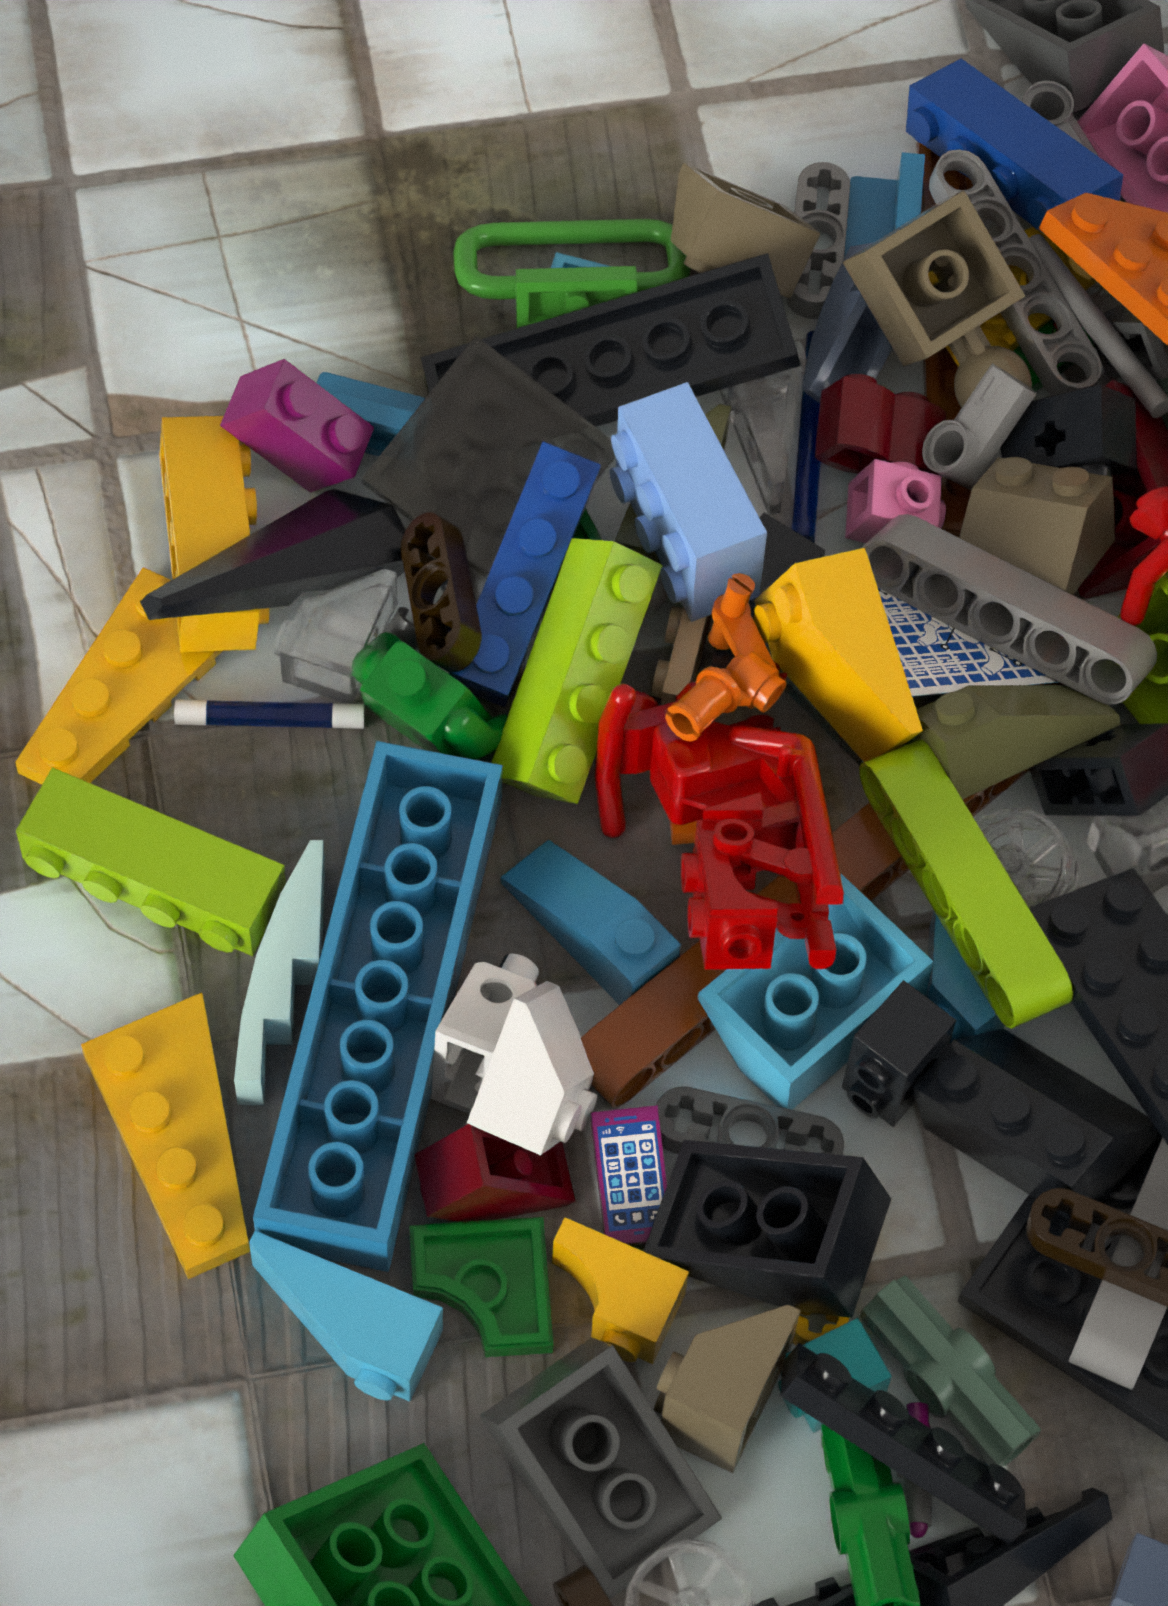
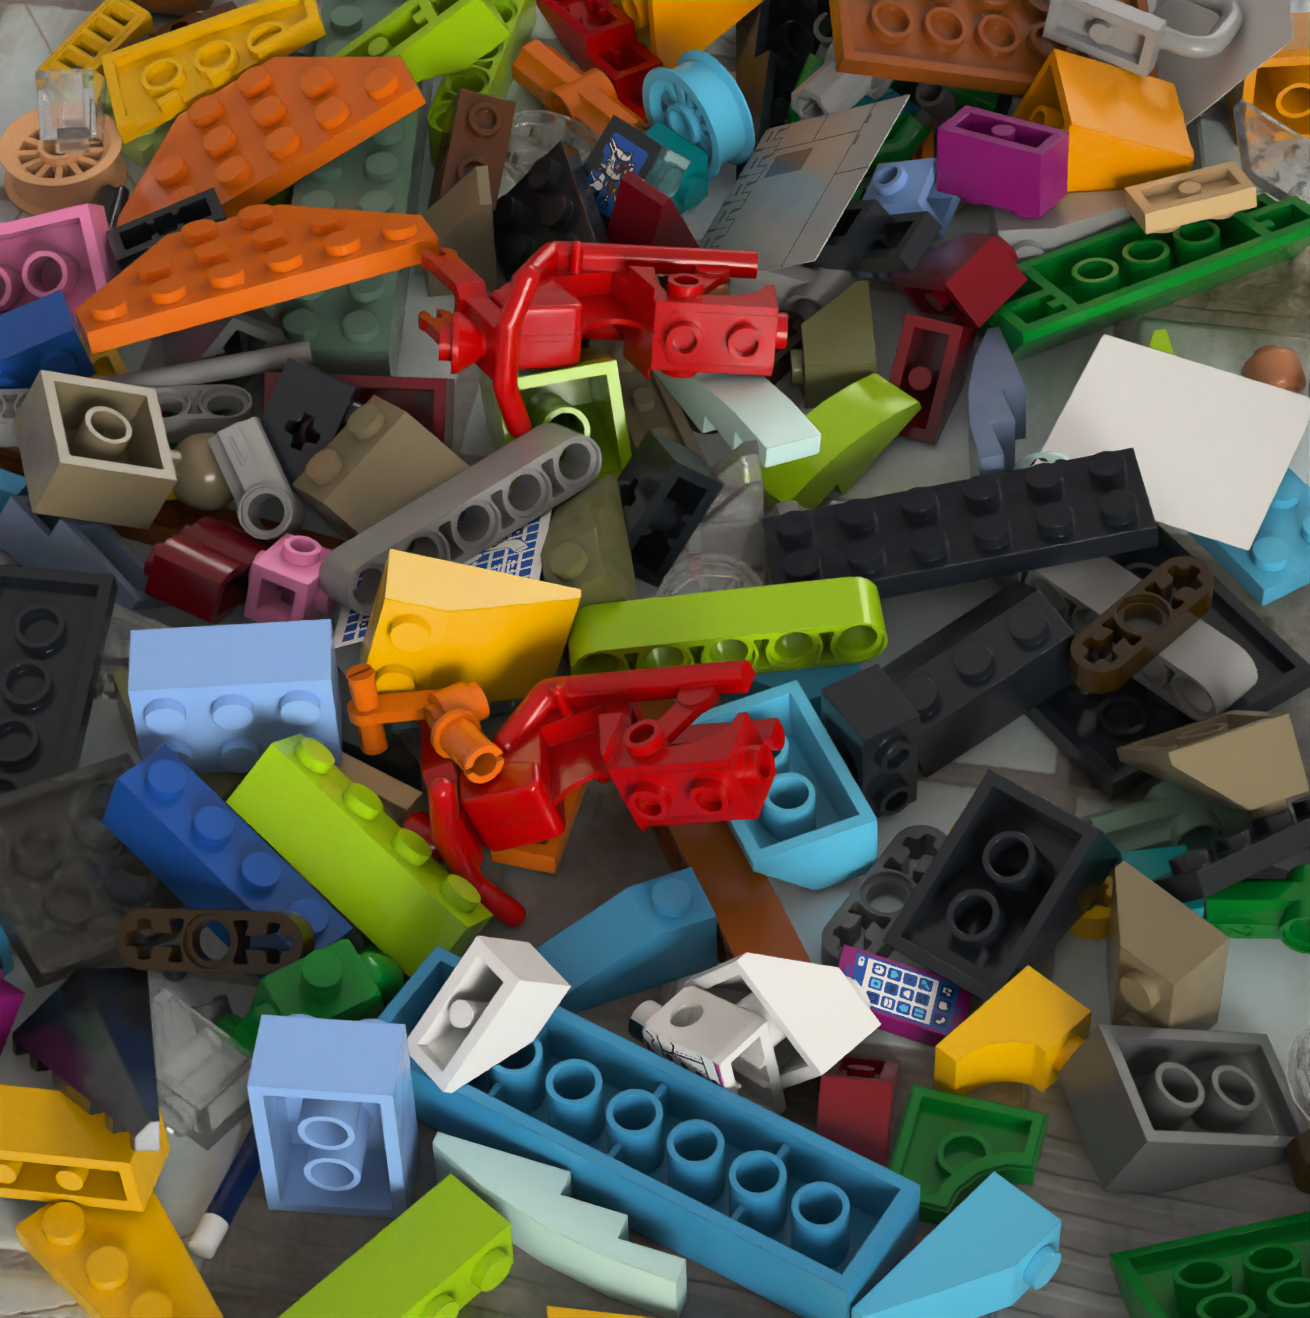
camera: 65 degrees left, 15 degrees down
(291, 748) = (334, 1115): none -> light blue brick
(425, 824) = (485, 1011): none -> white slope
(988, 1372) = (1227, 759): none -> dark tan slope

